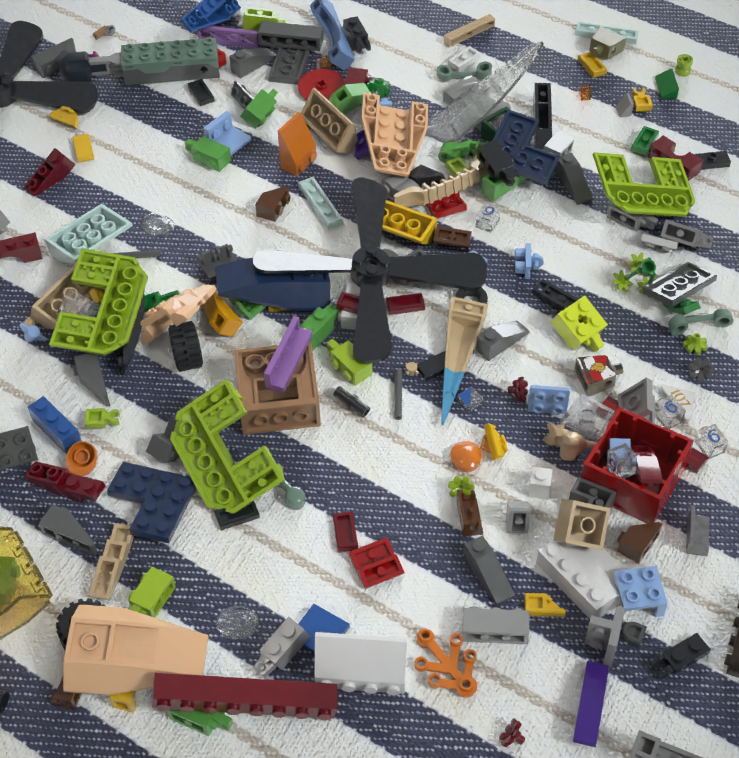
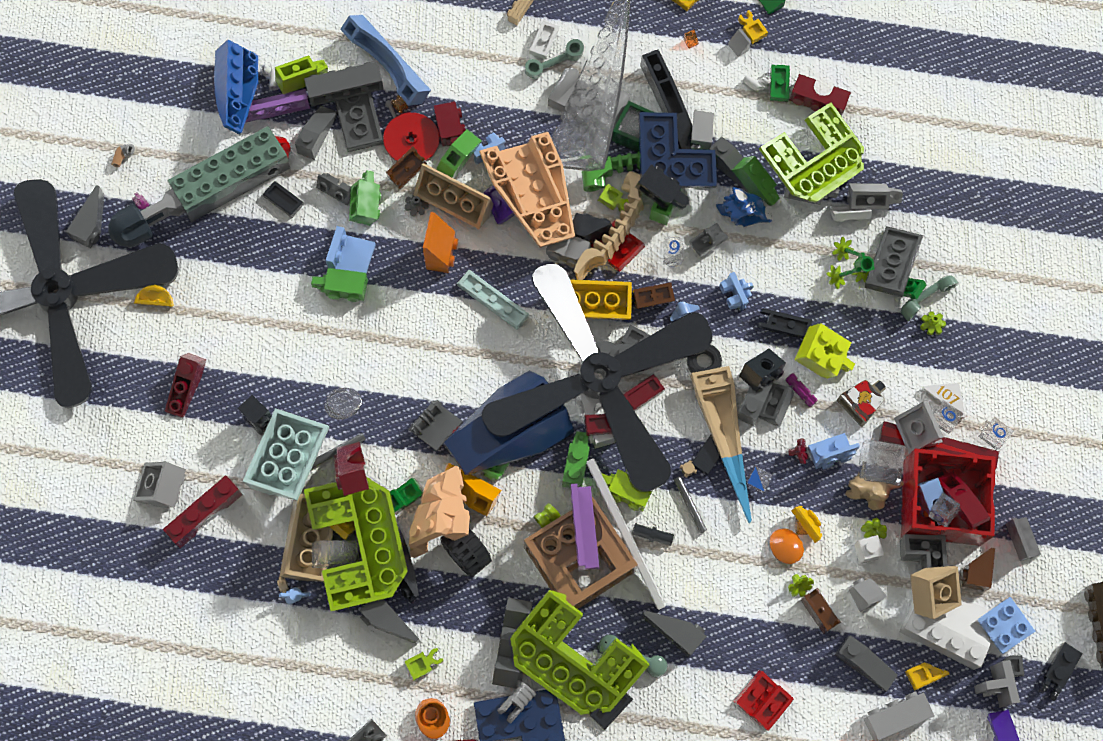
camera: 30 degrees left, 20 degrees up
(54, 424) = (384, 694): blue brick -> none
(83, 147) = (199, 331): yellow tile -> none
(83, 199) = (255, 414): none -> black brick
(116, 238) = (350, 469): none -> dark red arch
(159, 467) = (519, 699): none -> light grey hinge
(272, 203) = (446, 325): reddish brown slope -> none
(299, 96) = (405, 168): none -> reddish brown hinge
(326, 387) = (626, 535): none -> white tile
(329, 478) = (678, 632): none -> dark grey slope
(345, 531) = (719, 679): dark red tile -> none
(356, 34) = (414, 52): black hinge -> none
(381, 86) = (478, 122): green brick -> none
(516, 316) = (762, 369): none -> black brick
(518, 352) = (776, 404): none -> dark grey slope
(522, 217) = (708, 239): none -> dark grey hips
(545, 348) = (802, 391): none -> magenta axle
(557, 470) = (874, 528): none -> lime plant
(565, 203) = (742, 204): none -> blue piece
(586, 191) = (756, 179): none -> bright green hinge
(625, 137) = (756, 85): none -> white arm
(701, 369) = (952, 353): dark grey plant -> none
(714, 160) = (855, 80): black plate -> none

